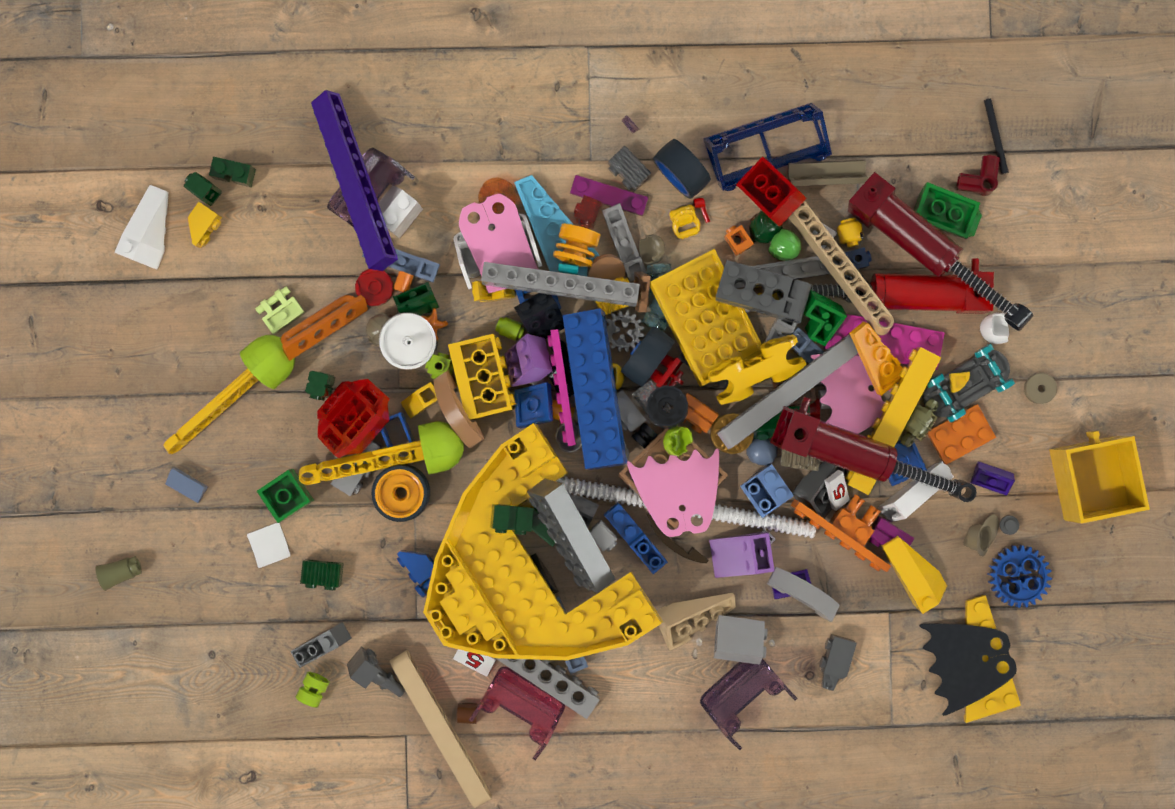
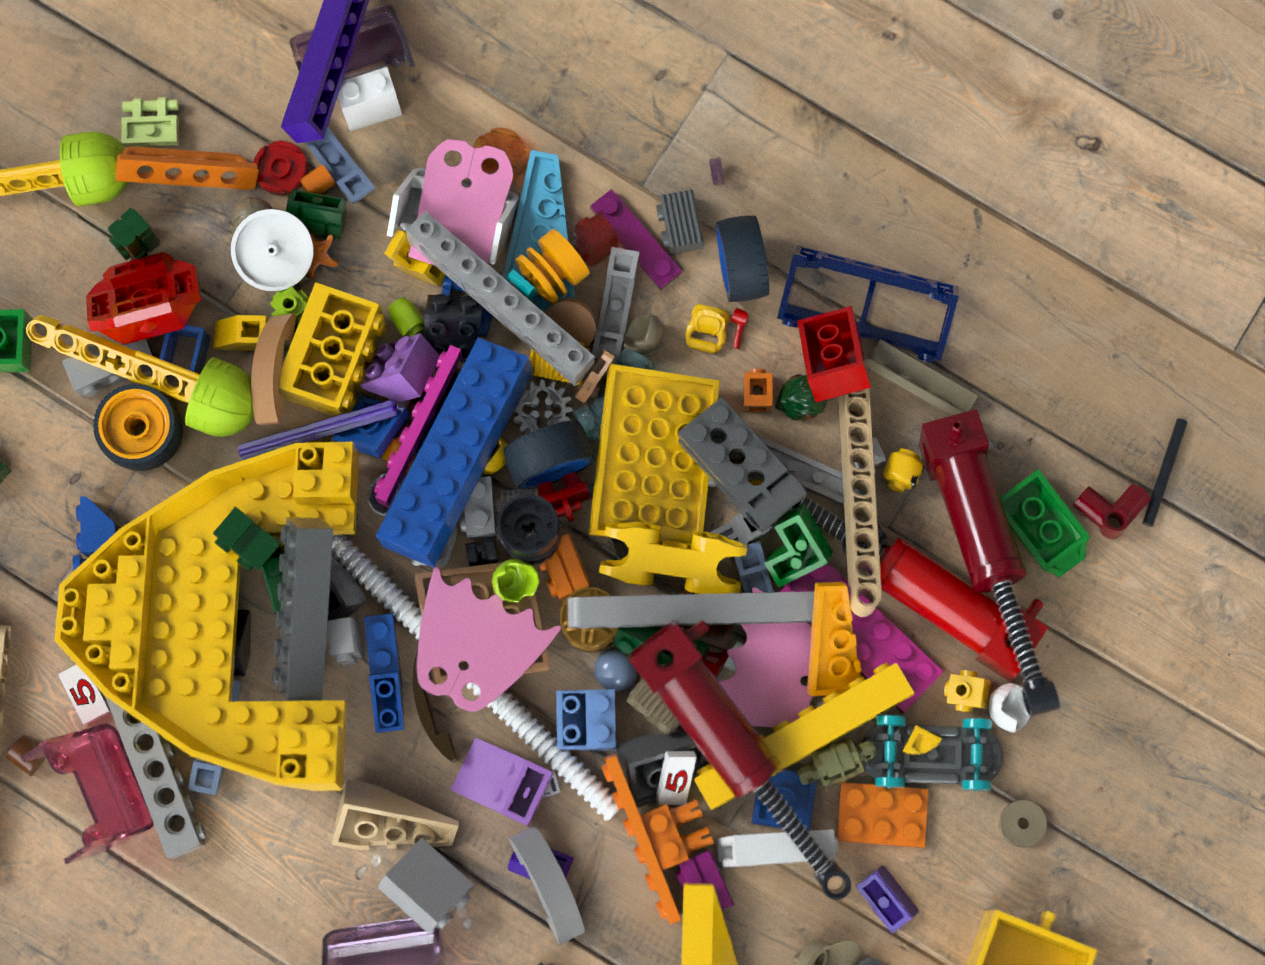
camera: 35 degrees right, 10 degrees down
(504, 427) = (319, 429): none -> dark purple axle
(785, 245) = (810, 434): bright green hair -> none
(865, 257) = (887, 518): dark blue brick -> none
(970, 329) = (977, 691): none -> yellow brick

